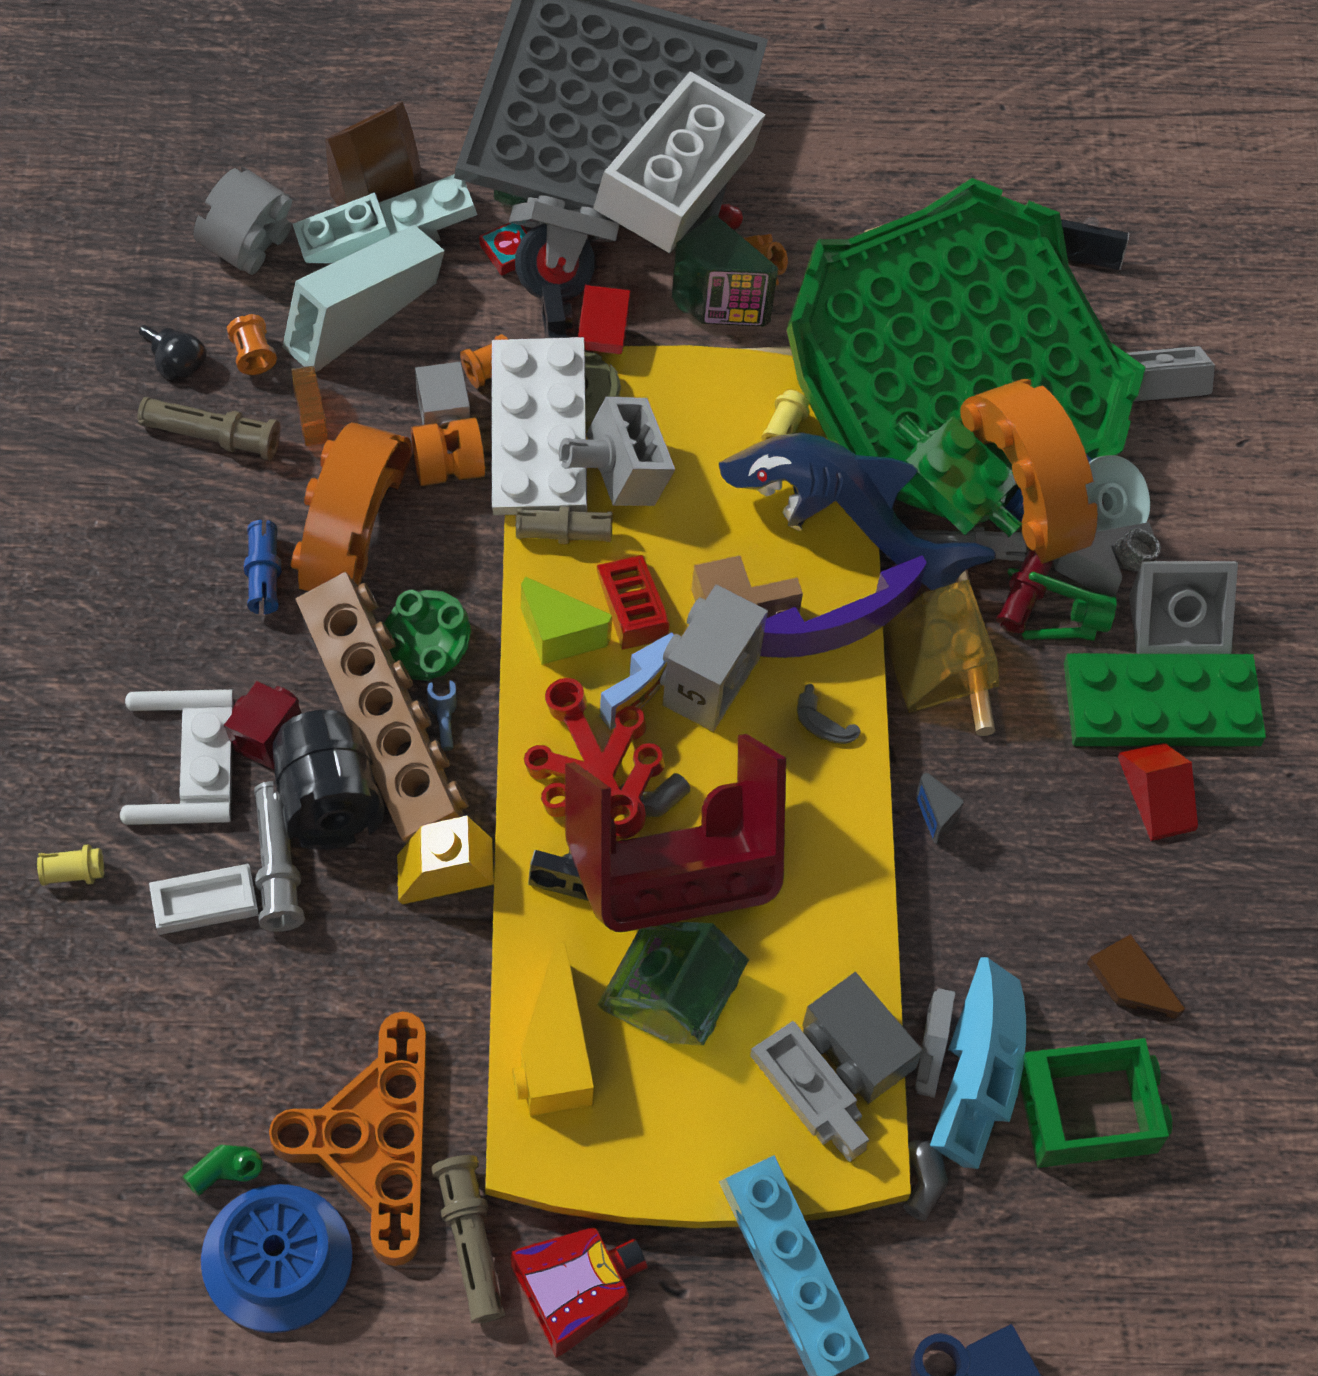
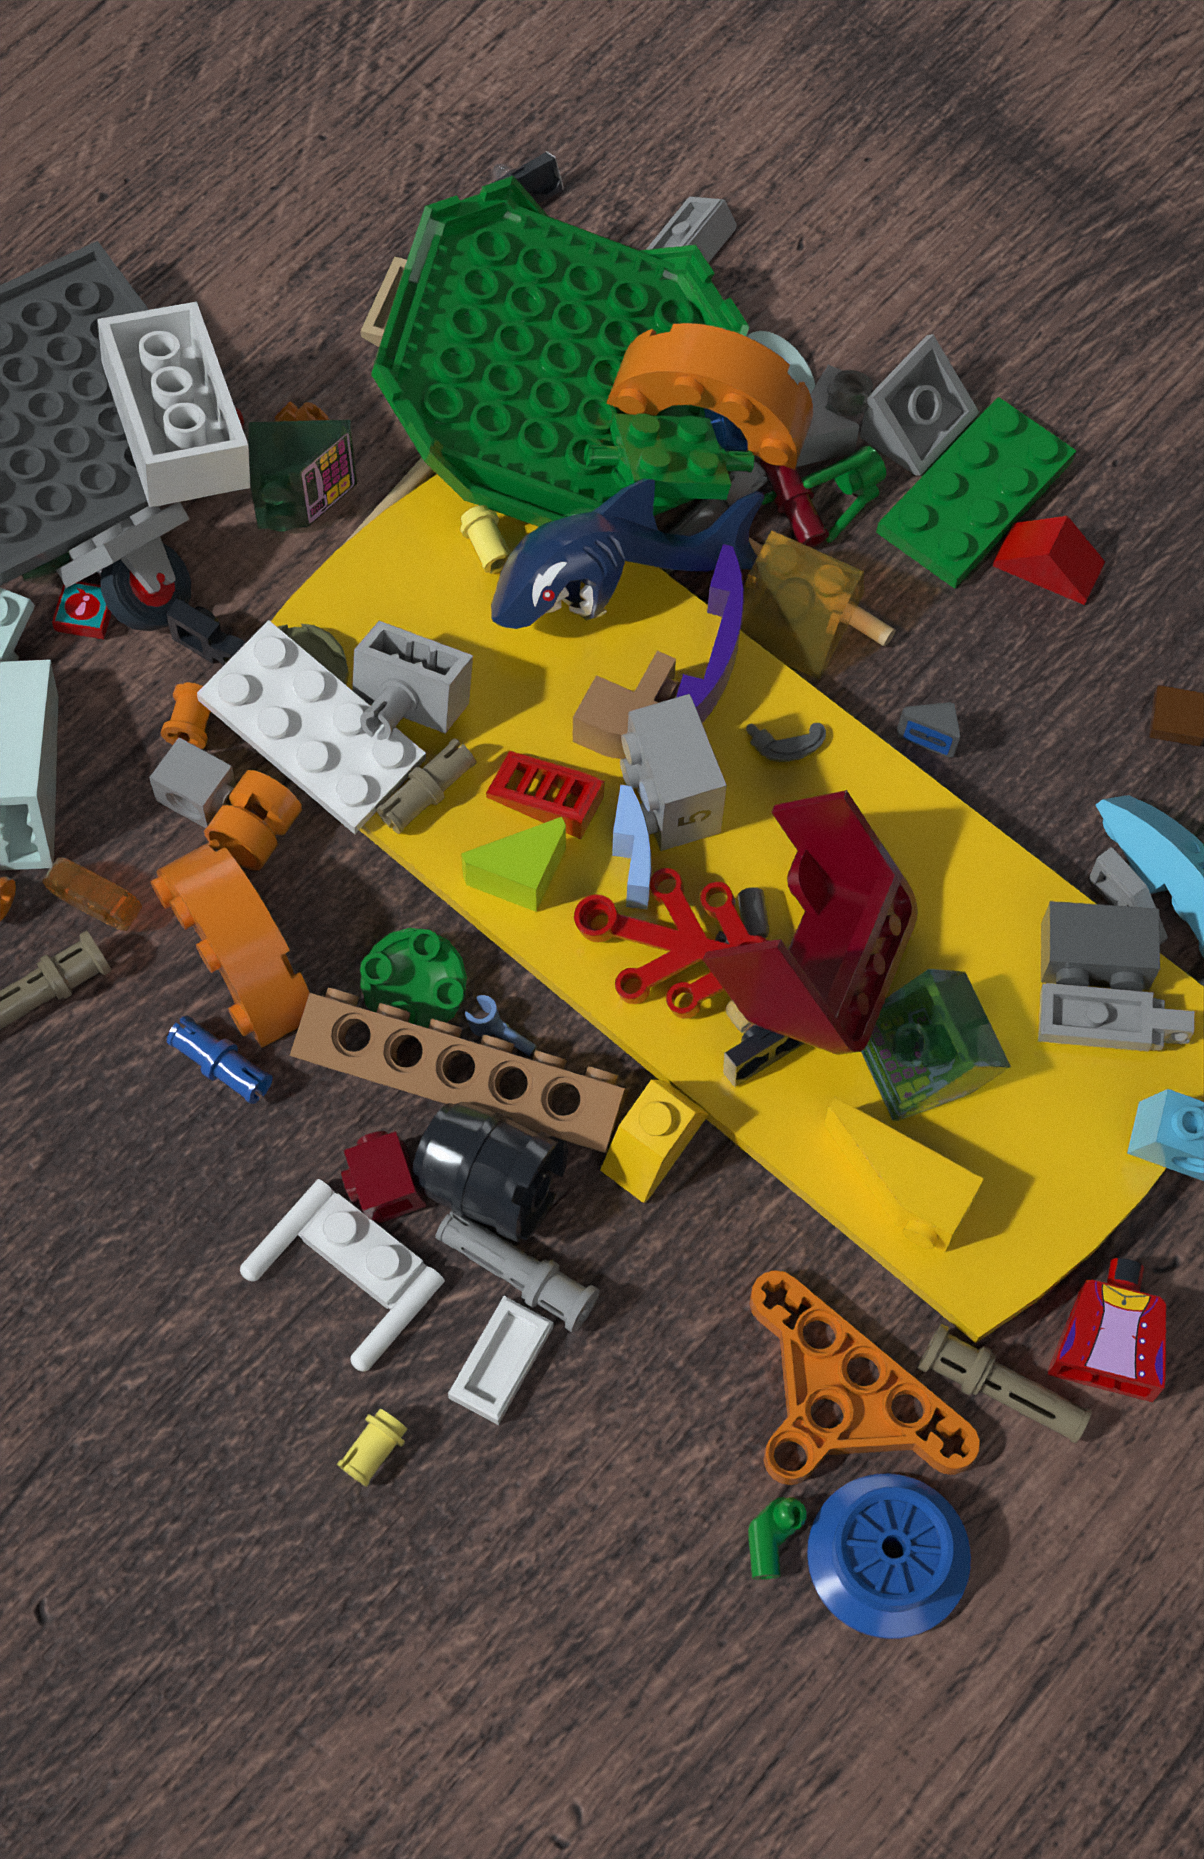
camera: 45 degrees left, 5 degrees up
(604, 319) = (251, 594): red slope -> none

